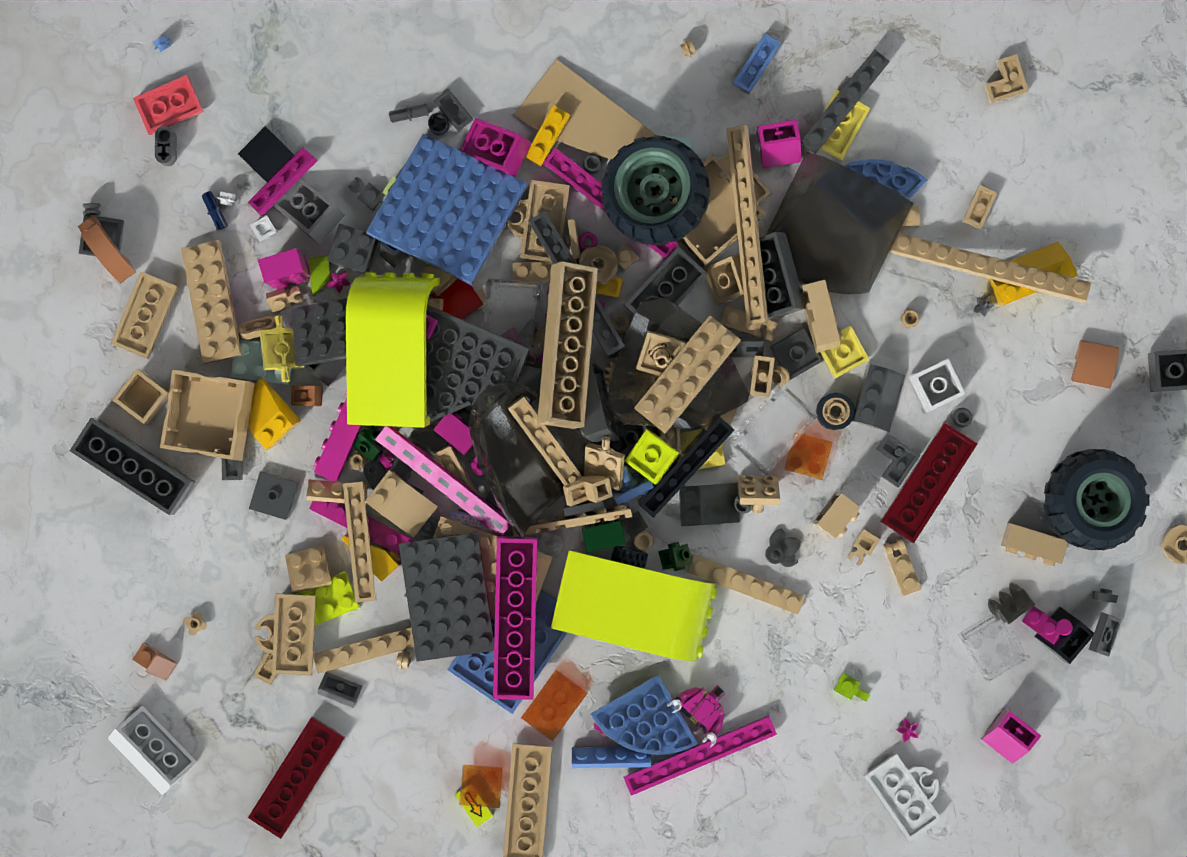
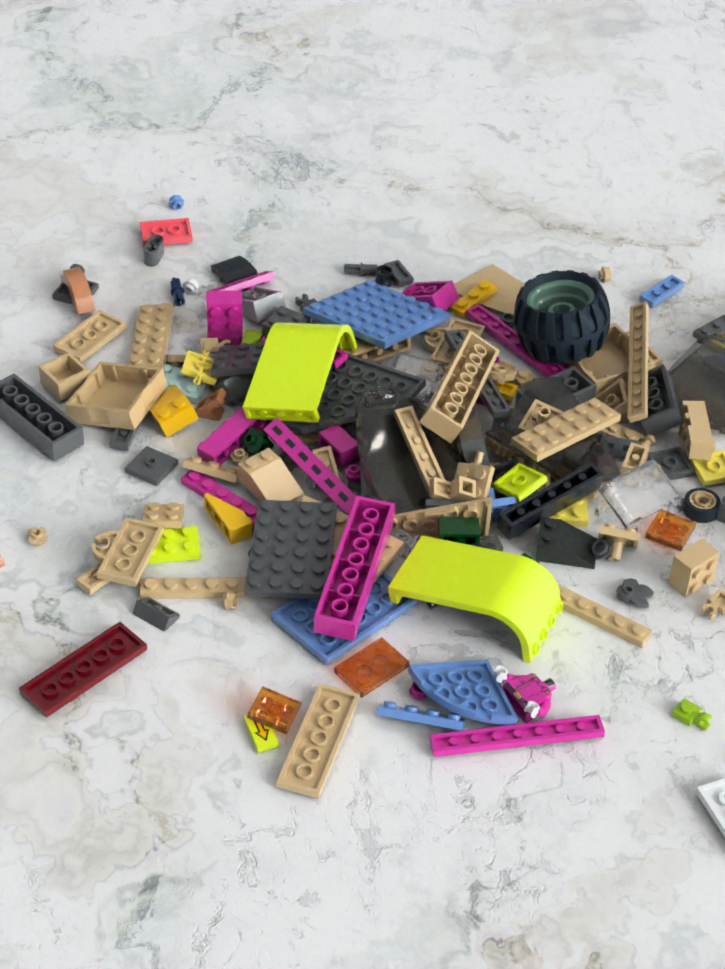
camera: 10 degrees right, 45 degrees down
(359, 542) = (221, 495): tan plate -> none
(779, 144) = (673, 331): dark pink slope -> none

